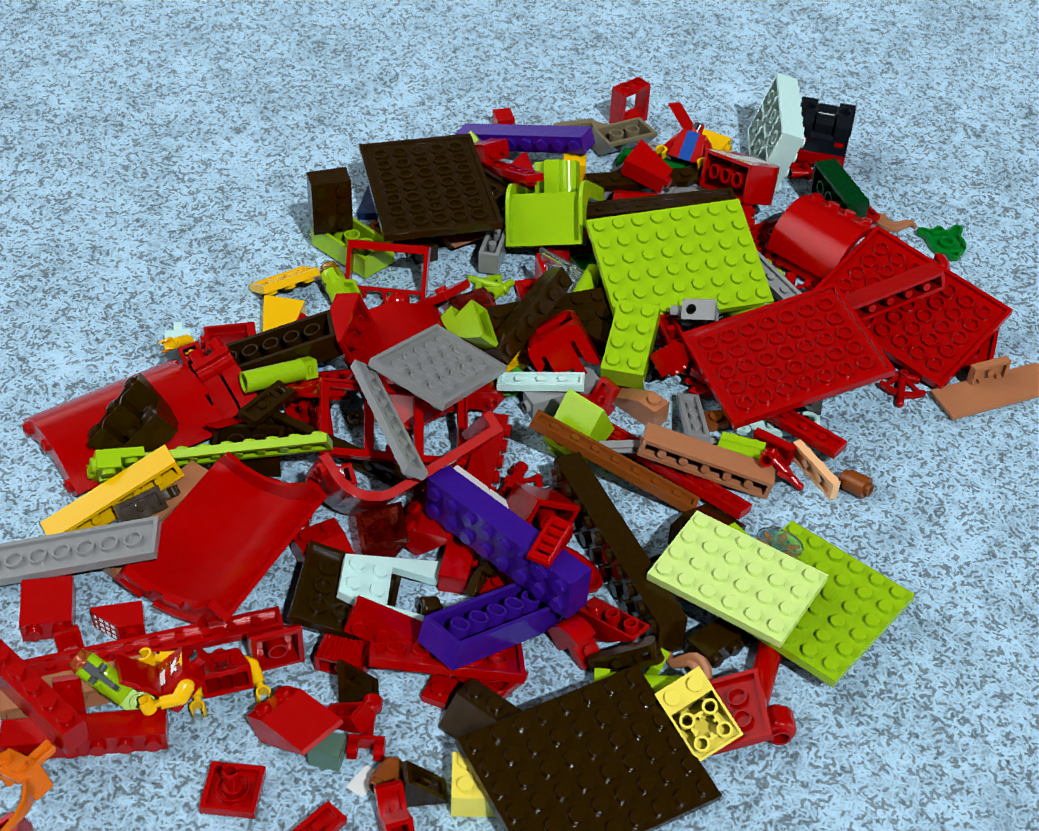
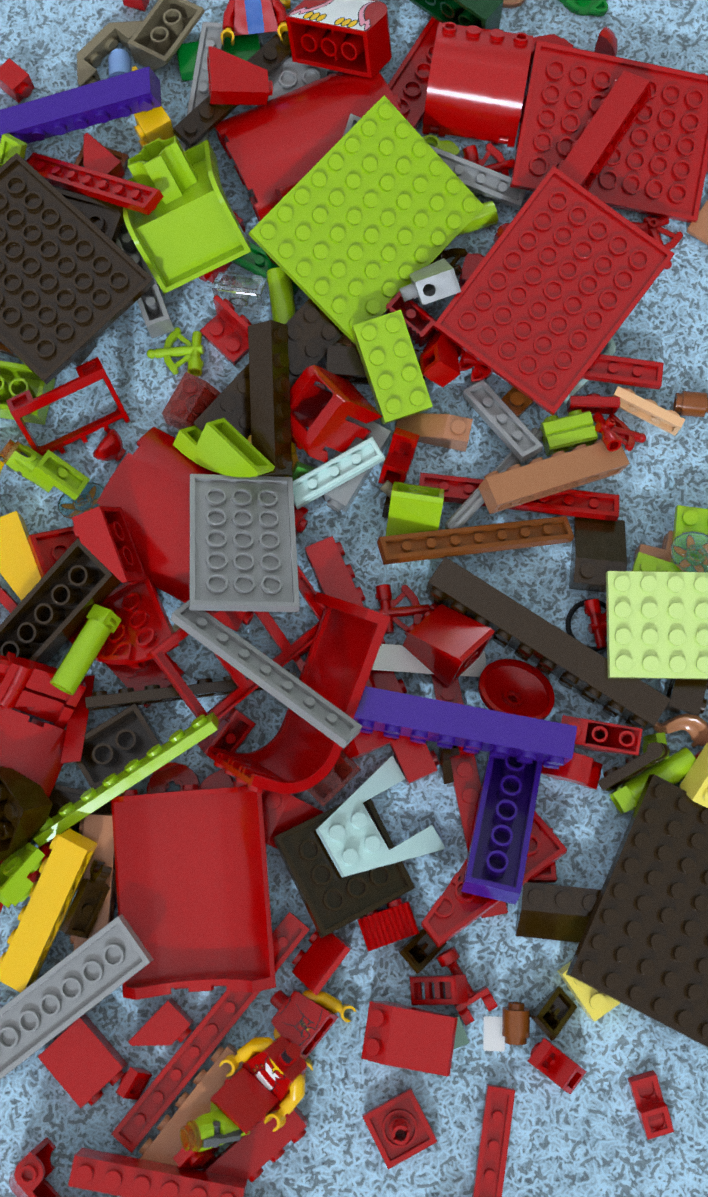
camera: 30 degrees left, 35 degrees up
(267, 403) = (105, 699): dark brown plate -> none
(380, 623) = (410, 881): red brick -> none
(428, 605) = (418, 815): dark brown piece -> none
(444, 293) = (149, 406): red plate -> none
(492, 149) = (46, 152): red brick -> none
(554, 527) = (531, 701): red slope -> none
(656, 202) = (295, 138): dark brown plate -> none

